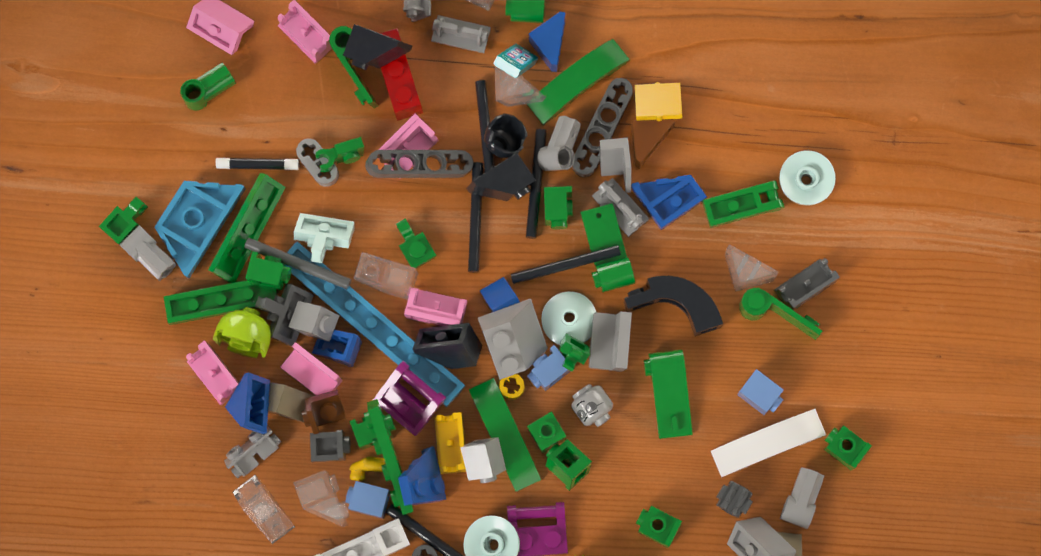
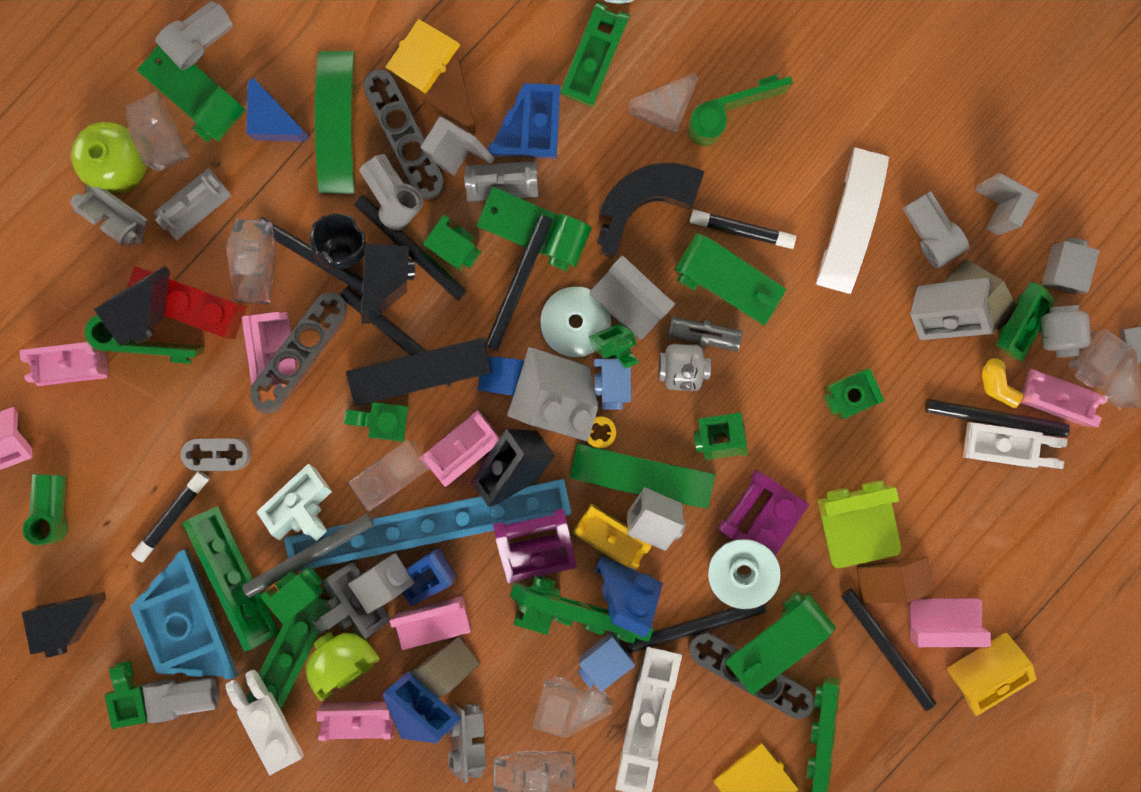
camera: 60 degrees left, 10 degrees up
(142, 147) = (60, 623): none -> black slope
(171, 316) = (265, 724): none -> white hinge
(323, 410) = (479, 641): reddish brown bracket -> none
(329, 446) = (521, 661): dark grey bracket -> none
(346, 152) = (228, 417): green plate -> none
(366, 464) = (565, 647): yellow arm -> none
(453, 94) = (251, 260): none -> clear slope
(463, 245) = (419, 371): none -> black tile
(515, 60) = (265, 169): teal tile -> none
(515, 91) = (291, 194): clear slope -> none
(546, 432) = (675, 434): green brick -> none
(615, 387) = (727, 339): none -> dark grey pin
(708, 378) = (742, 229): none -> black bar
(734, 499) = (885, 298): dark grey gear -> none
(761, 393) = (800, 188): medium blue brick -> none
(807, 284) = (726, 55): dark grey hinge -> none
(851, 457) = (934, 144): green brick -> none
(860, 527) = (1013, 200): none -> light grey panel

